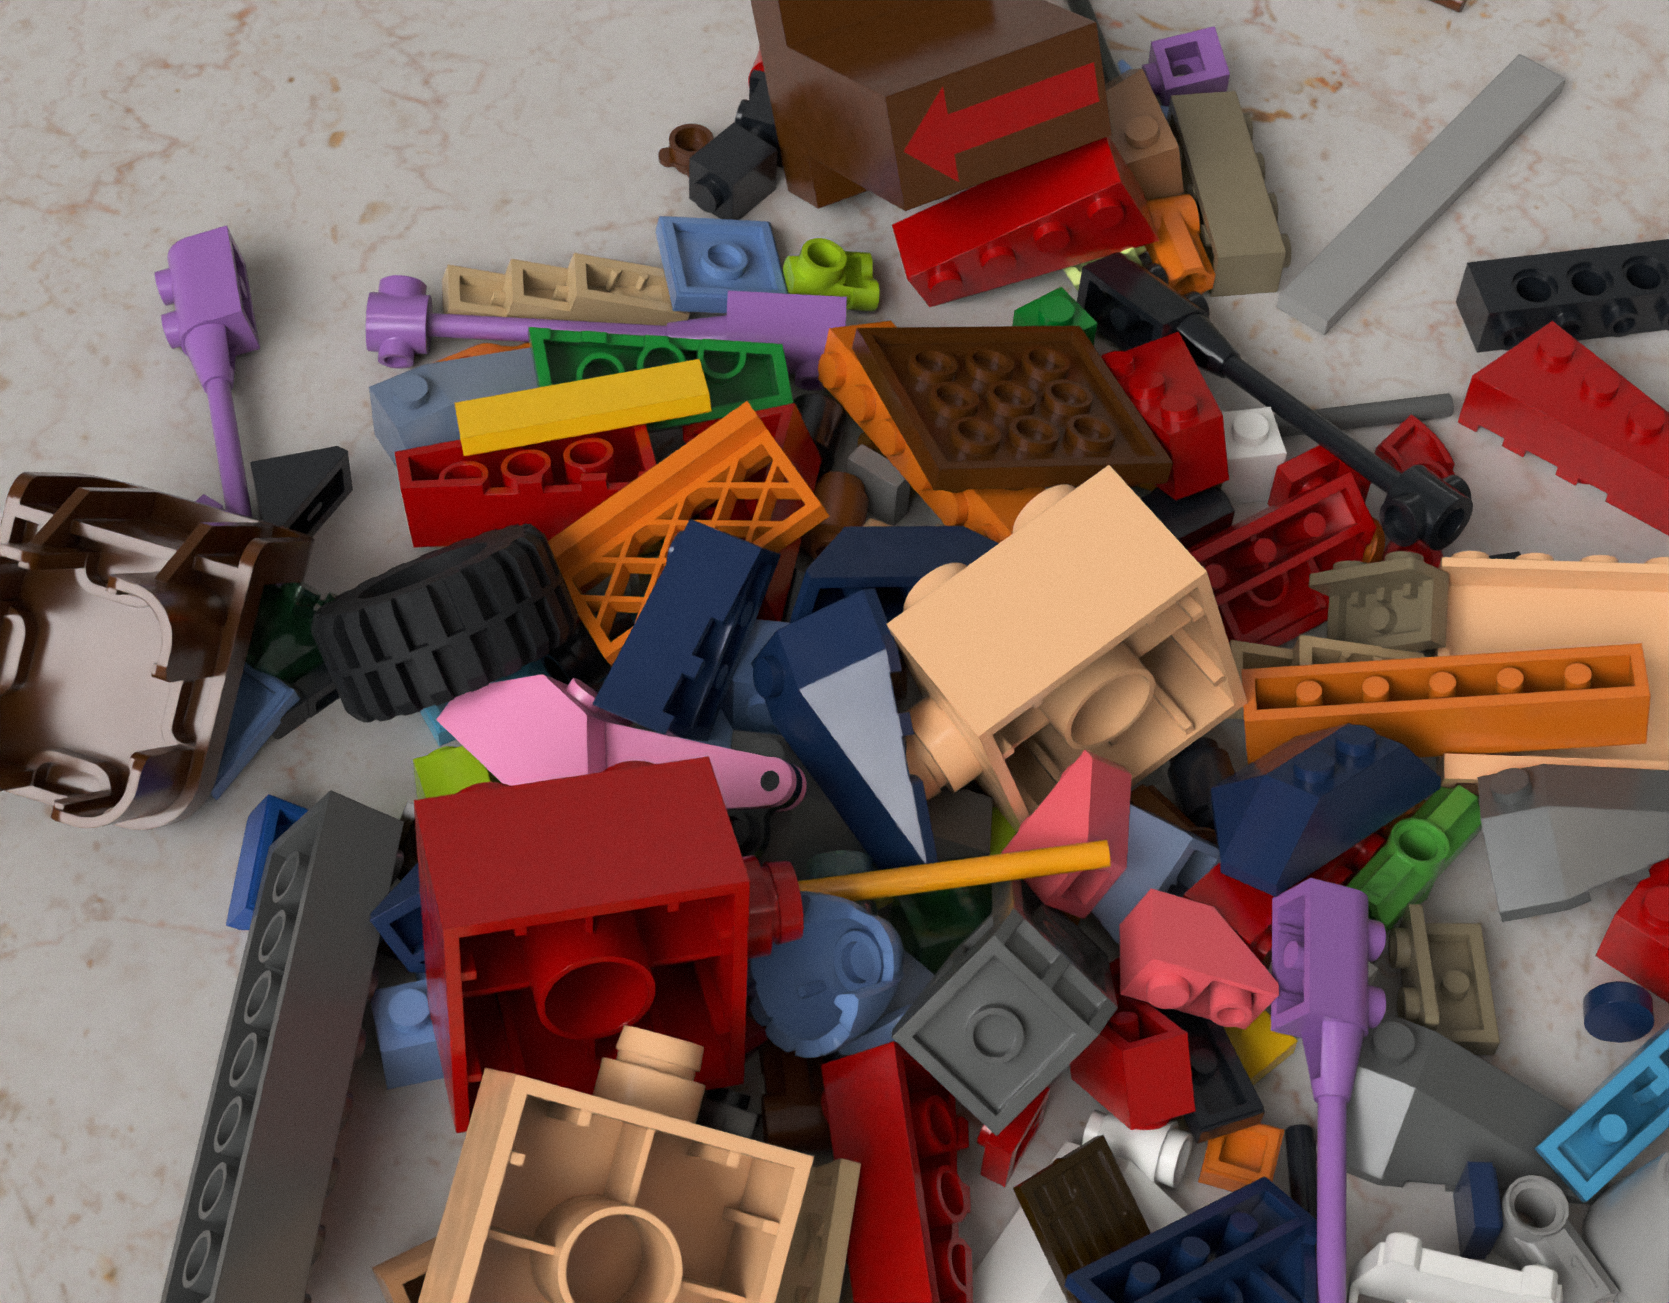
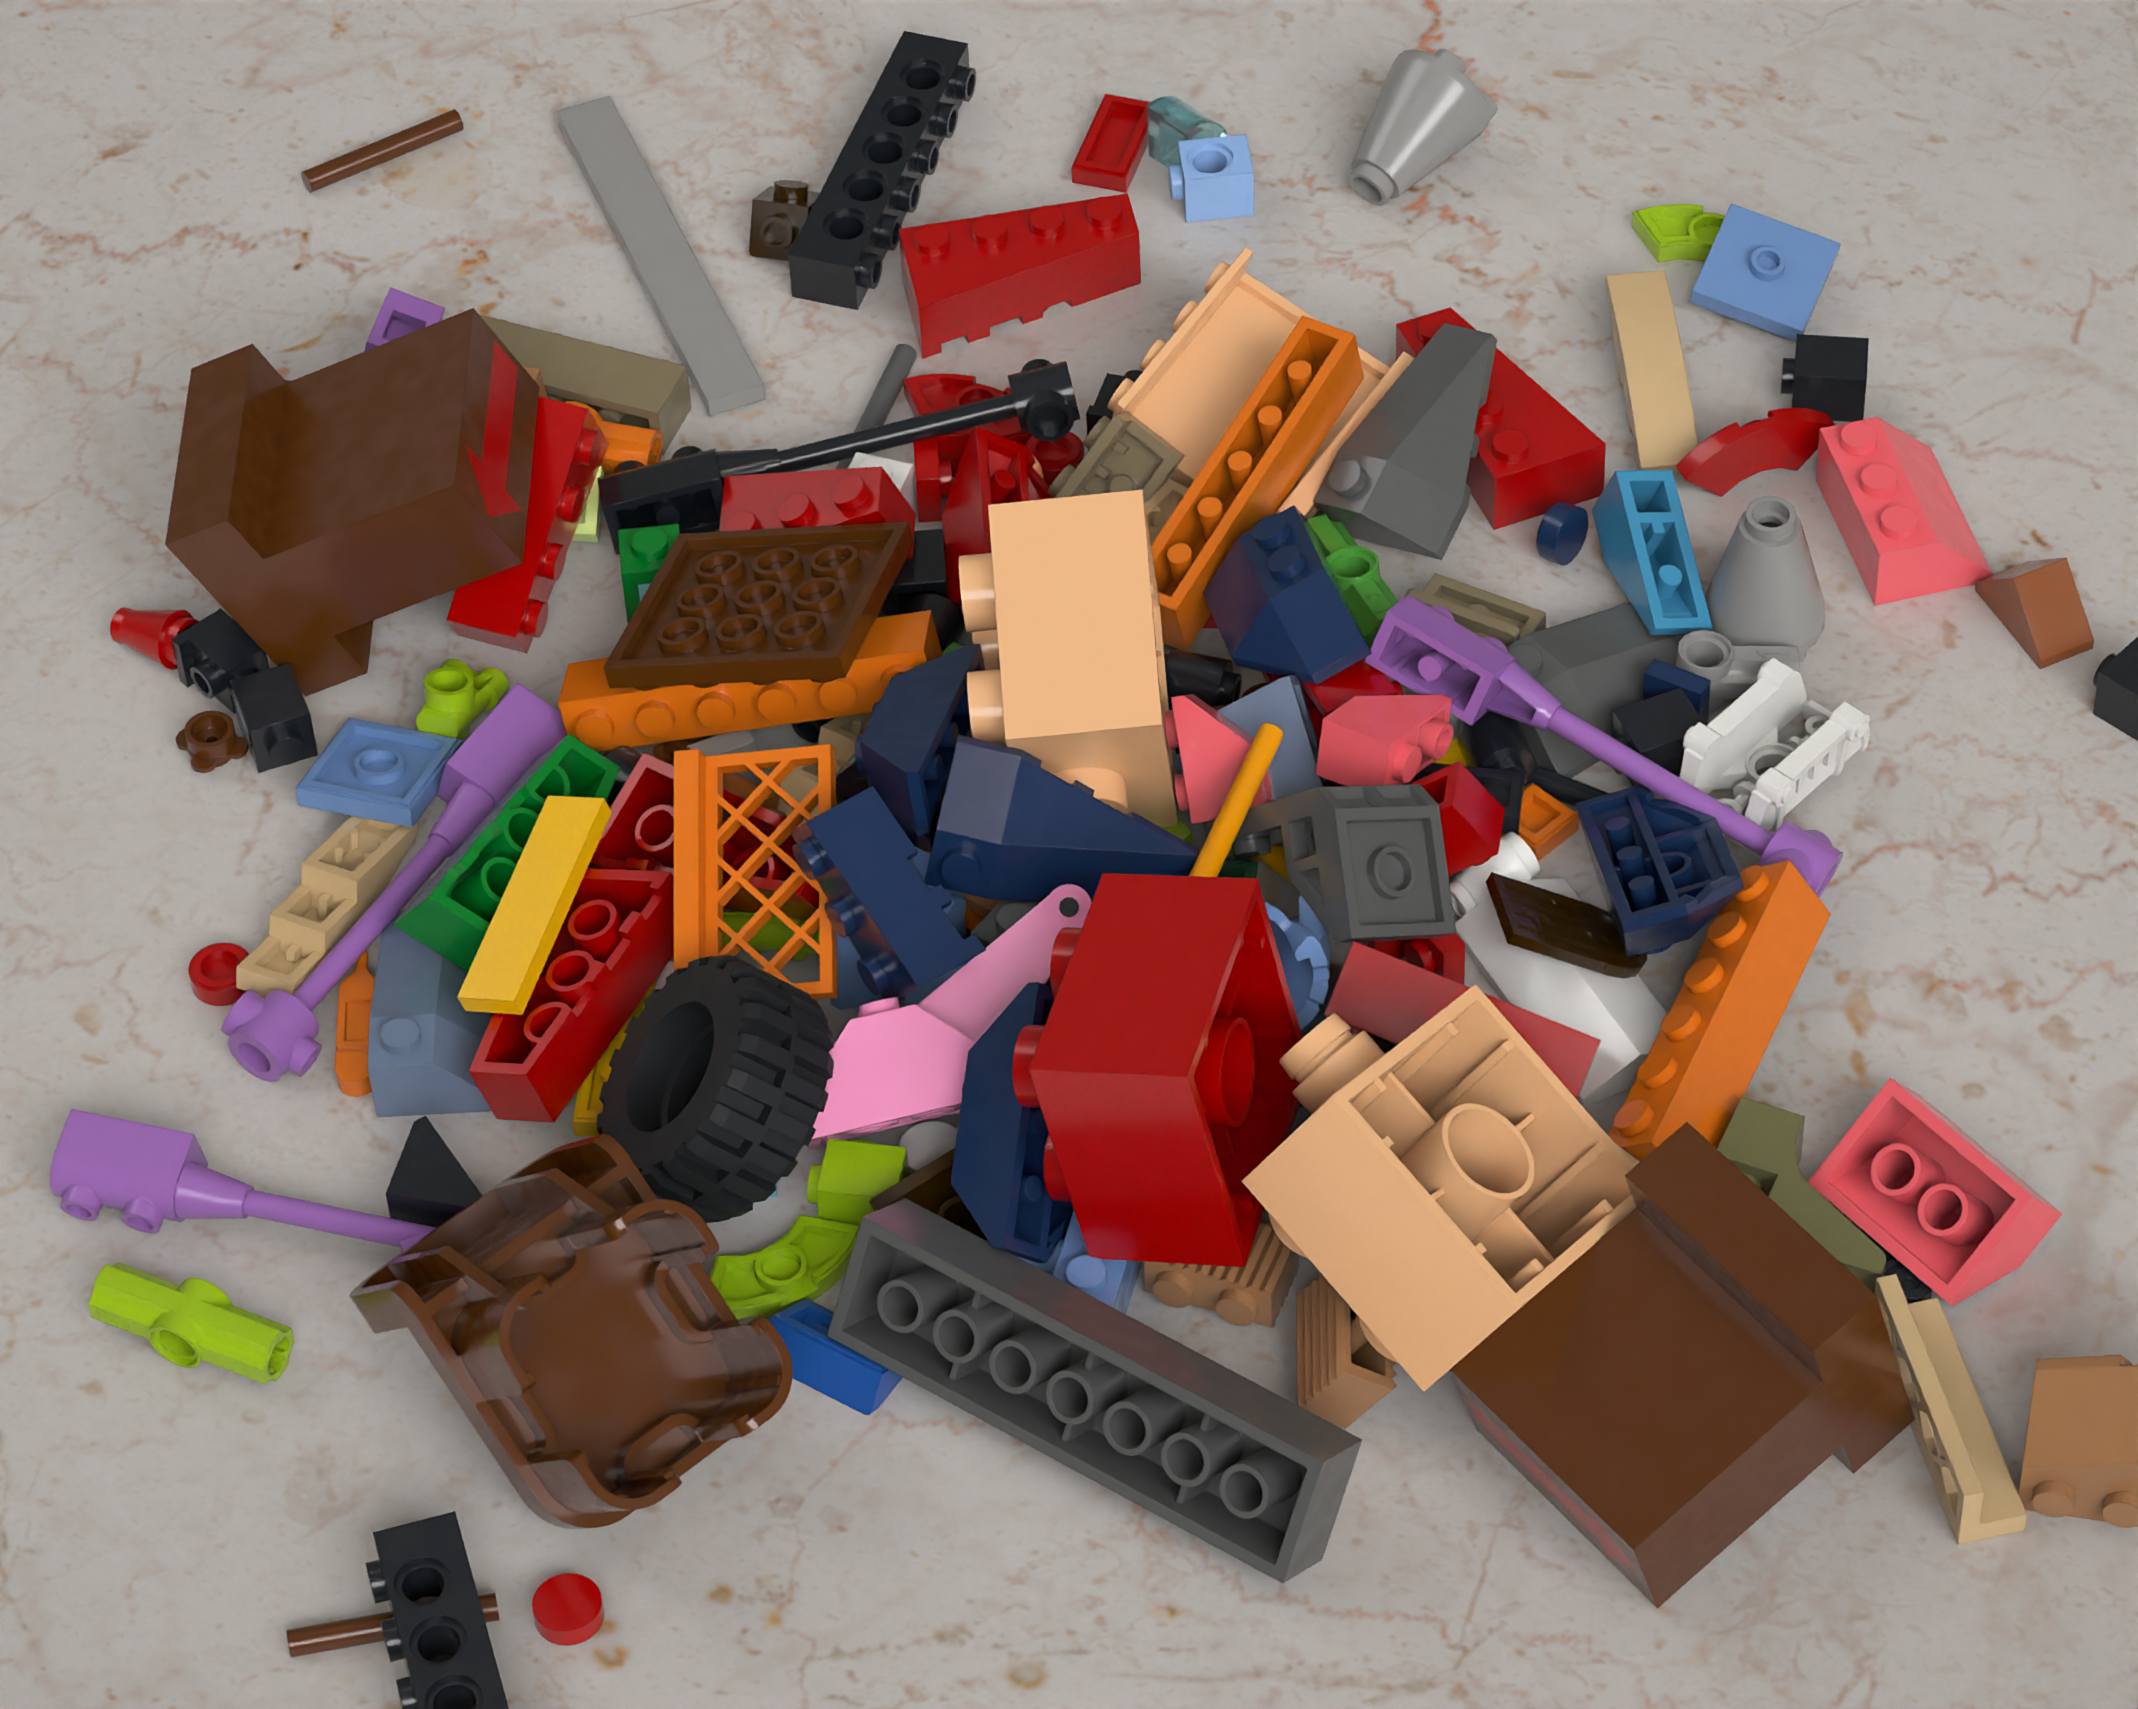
camera: 55 degrees left, 5 degrees down
(77, 400) = (191, 1322): none -> lime piece
(319, 763) = (788, 1271): none -> lime tile
(456, 253) = (214, 973): none -> red tile
(1284, 1083) = (1496, 744): none -> black brick
(1406, 1202) = (1656, 729): none -> black brick
(1523, 237) = (778, 218): none -> dark brown bracket

